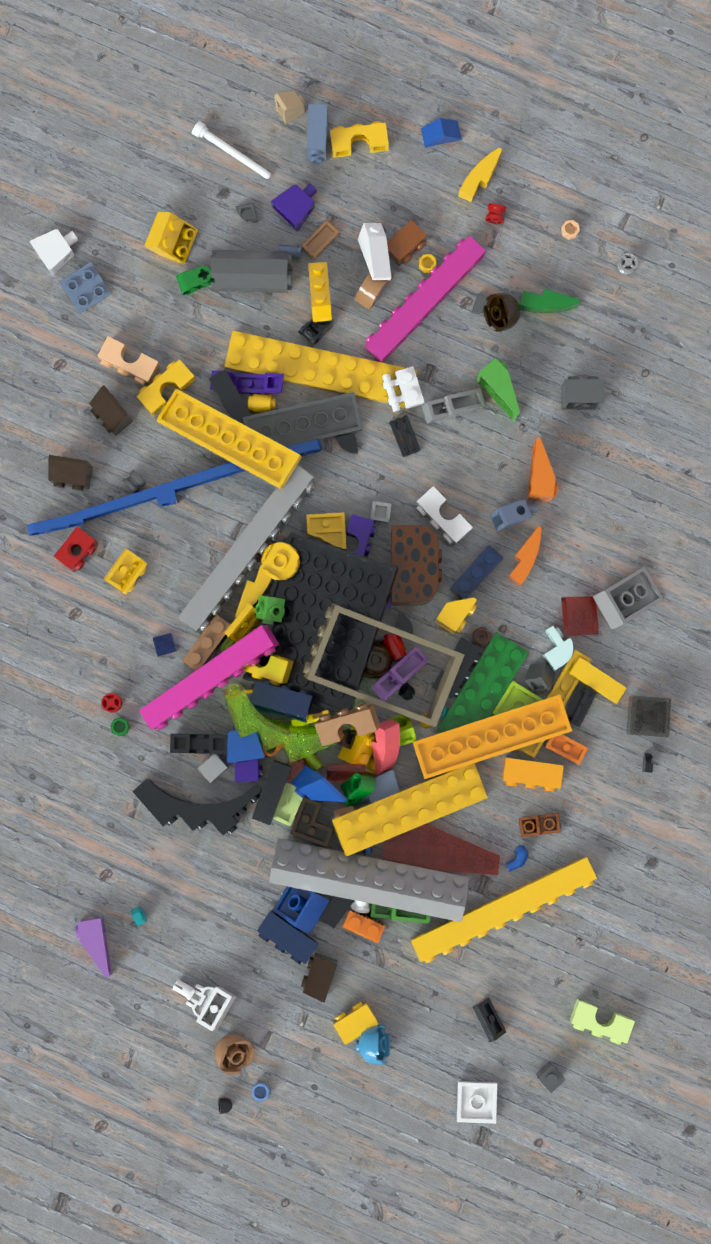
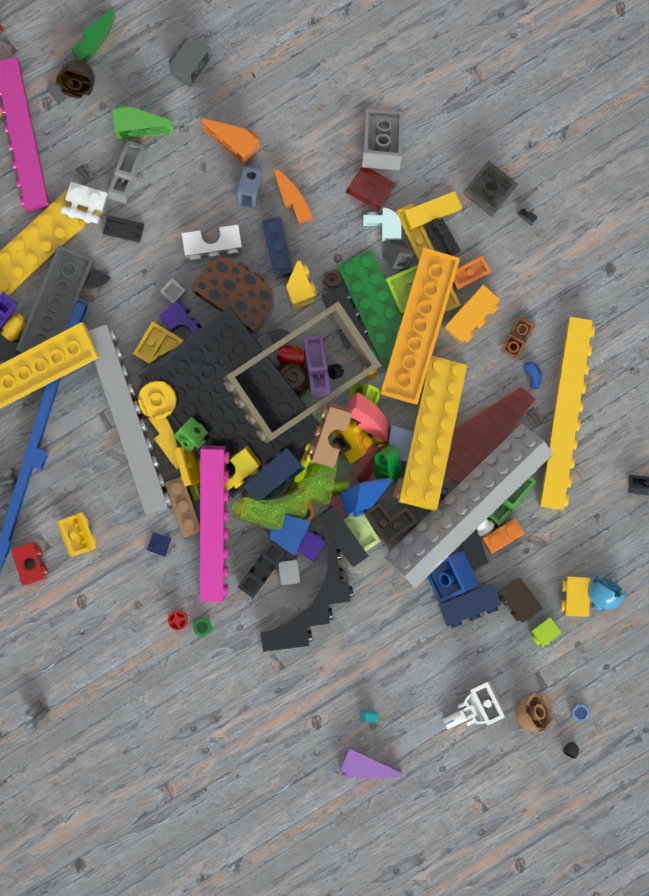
camera: 60 degrees left, 0 degrees up
(307, 1016) = (545, 632): none -> lime brick

